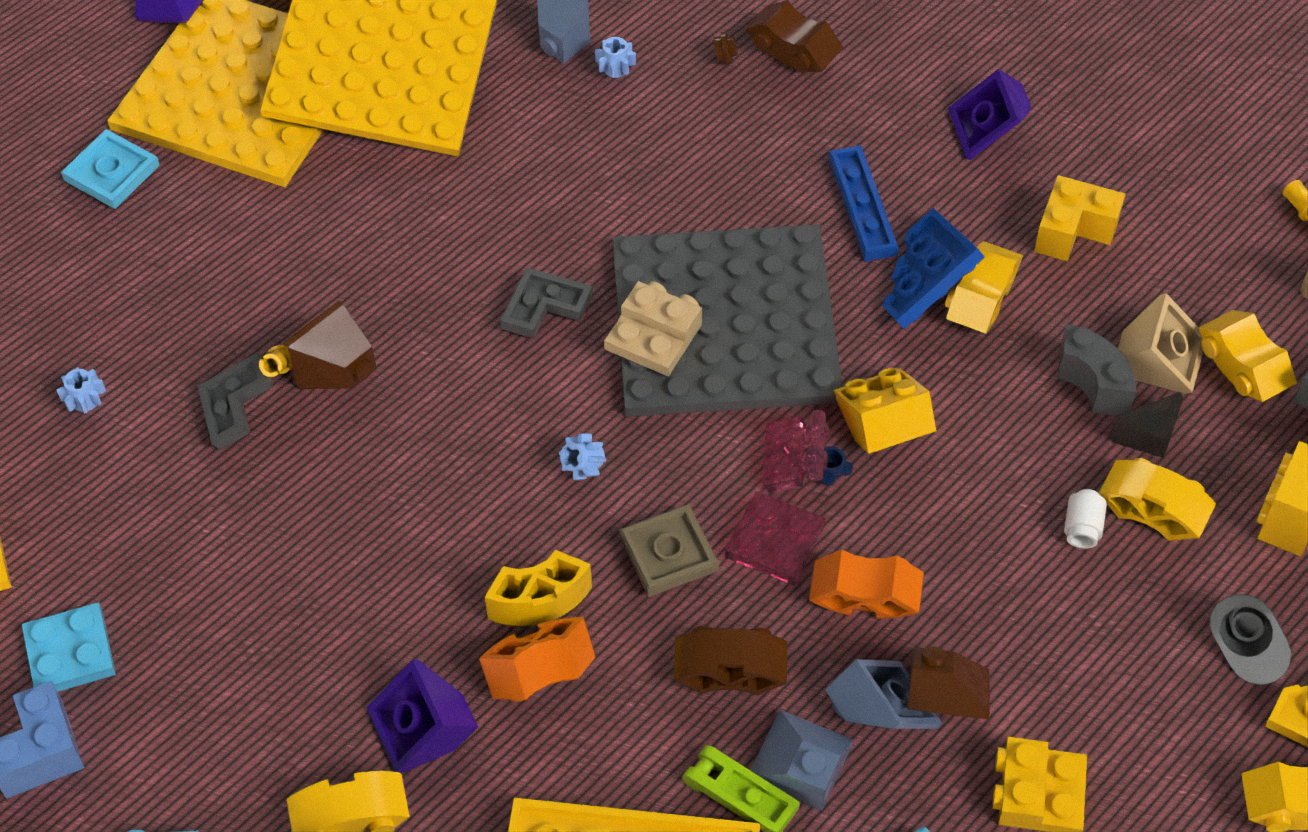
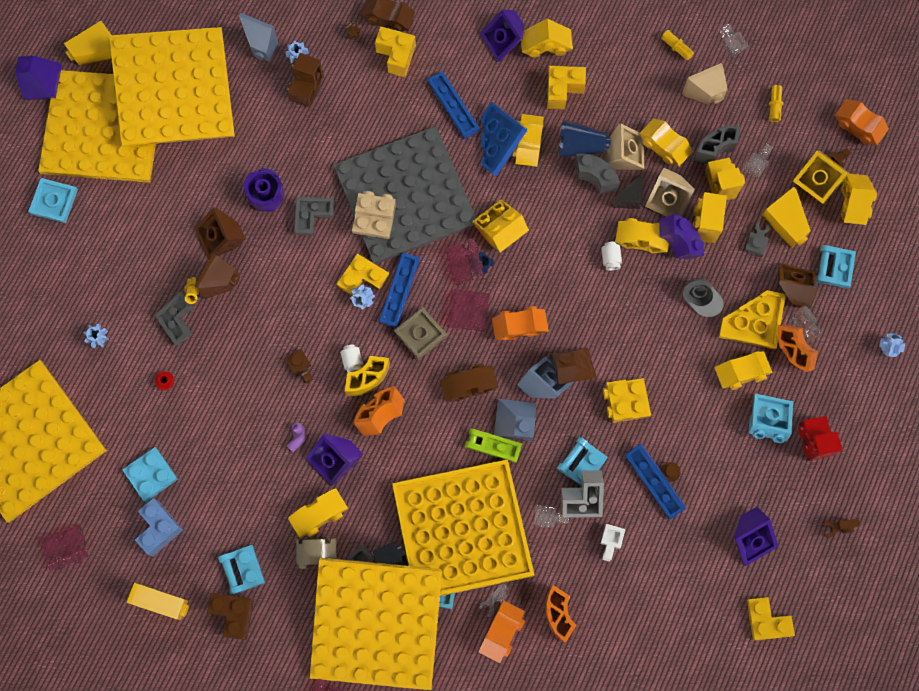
camera: 20 degrees left, 20 degrees up
(167, 506) = (170, 380): none -> red plate
(370, 285) = (219, 233): none -> reddish brown slope
(370, 663) = (298, 435): none -> medium lavender arm
(421, 540) = (299, 363): none -> reddish brown plate
(474, 241) = (257, 195): none -> dark purple brick
(522, 549) = (351, 358): none -> white brick
(603, 419) = (360, 271): none -> yellow plate
(617, 97) = (307, 79): none -> reddish brown brick
(656, 469) = (399, 290): none -> blue tile
(791, 91) = (398, 47): none -> yellow brick
(1069, 132) = (546, 37): none -> yellow brick
(1082, 302) = (581, 140): none -> dark blue cone
(1229, 444) = (670, 194): none -> tan slope
(1234, 514) = (681, 236): none -> dark purple brick

